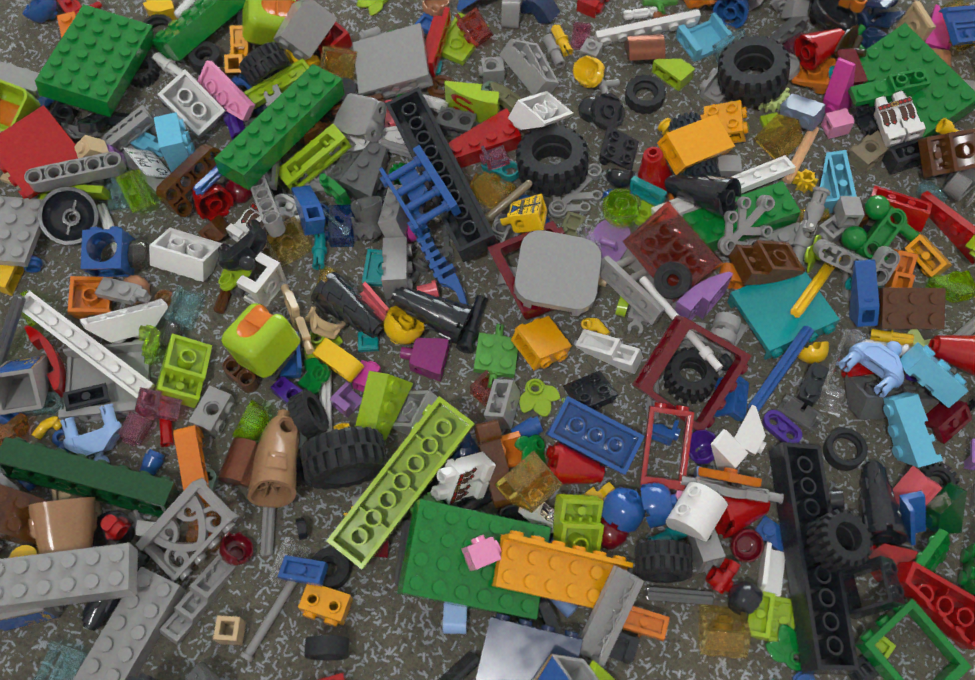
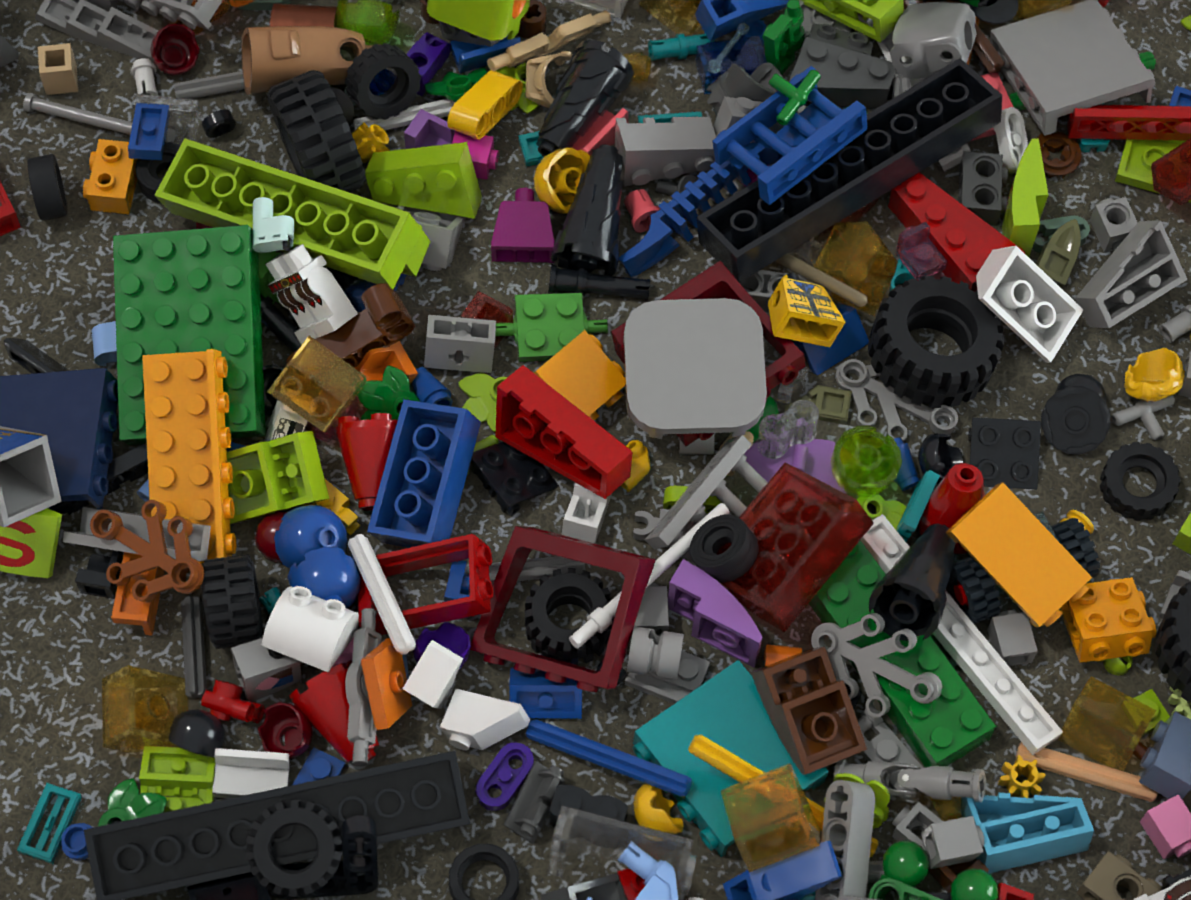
camera: 75 degrees right, 0 degrees up
(249, 574) = (144, 72): none -> white pin
(363, 34) = (1133, 25): light grey pin -> none
(398, 178) = (796, 96): none -> green piece
(423, 490) = (270, 232): none -> light aqua piece
(481, 552) = (184, 323): bright pink brick -> none
(581, 355) = (559, 434): none -> red wedge
(634, 602) = (153, 553): none -> dark orange plant
(672, 470) = (381, 594): none -> white axle
(837, 287) = (770, 817): none -> clear yellow slope

